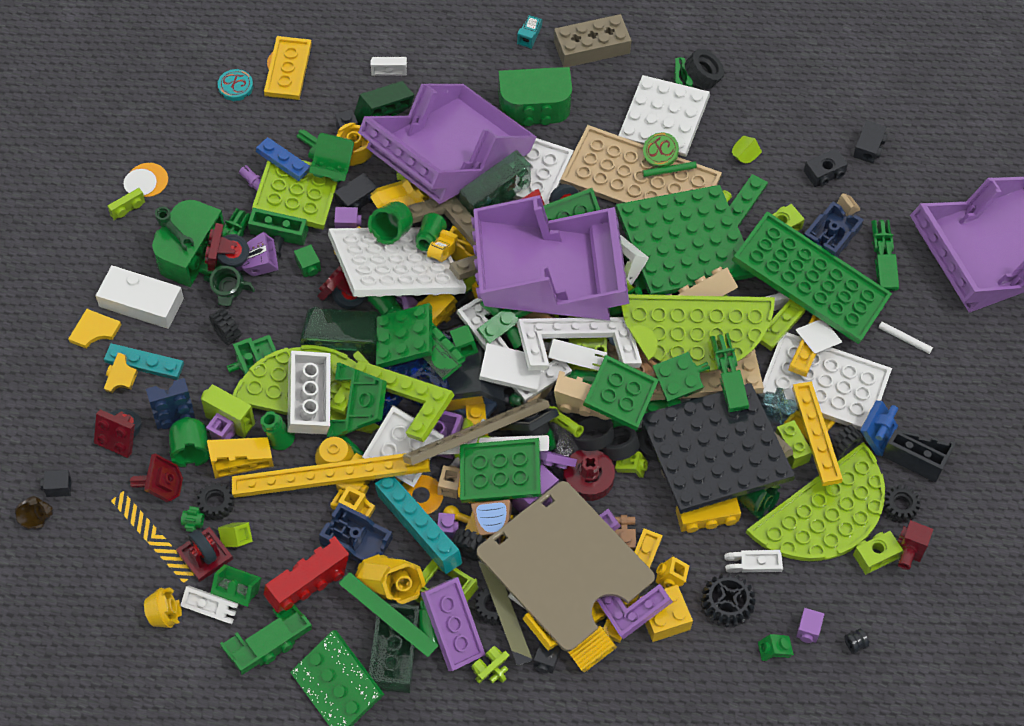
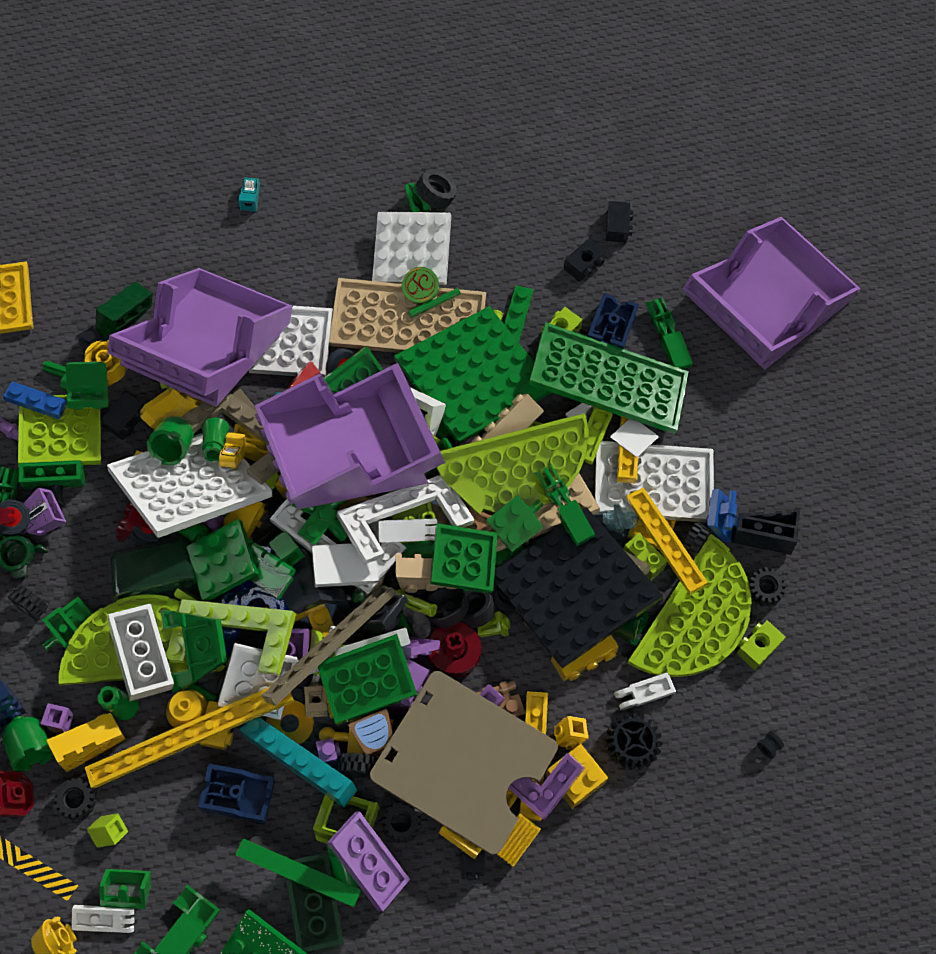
camera: 20 degrees left, 5 degrees up
(192, 519) = (56, 828): green gear -> none
(204, 553) = (80, 863): dark red plate -> none
(221, 402) = (46, 690): lime brick -> none
(307, 261) = (94, 503): green brick -> none
(307, 576) = (199, 857): red wedge -> none
(347, 217) = (122, 446): medium lavender brick -> none
(353, 499) = (222, 755): yellow brick -> none
(389, 66) = (116, 268): white panel -> none
(391, 578) = (288, 831): yellow brick -> none
(483, 671) = (414, 899): lime hips -> none
(497, 183) = (267, 369): clear green brick -> none
(507, 616) = (422, 835): olive sticker -> none
(535, 95) = (276, 261): green brick -> none
(592, 41) = (315, 188): dark tan brick -> none
(746, 149) = (502, 261): lime brick -> none
(775, 646) = (694, 776): green bracket -> none
(810, 625) = (721, 743): medium lavender brick -> none
(848, 204) = (617, 291): tan slope -> none
(905, 337) = (714, 412): white bar -> none
(914, 542) = (794, 625): dark red brick -> none

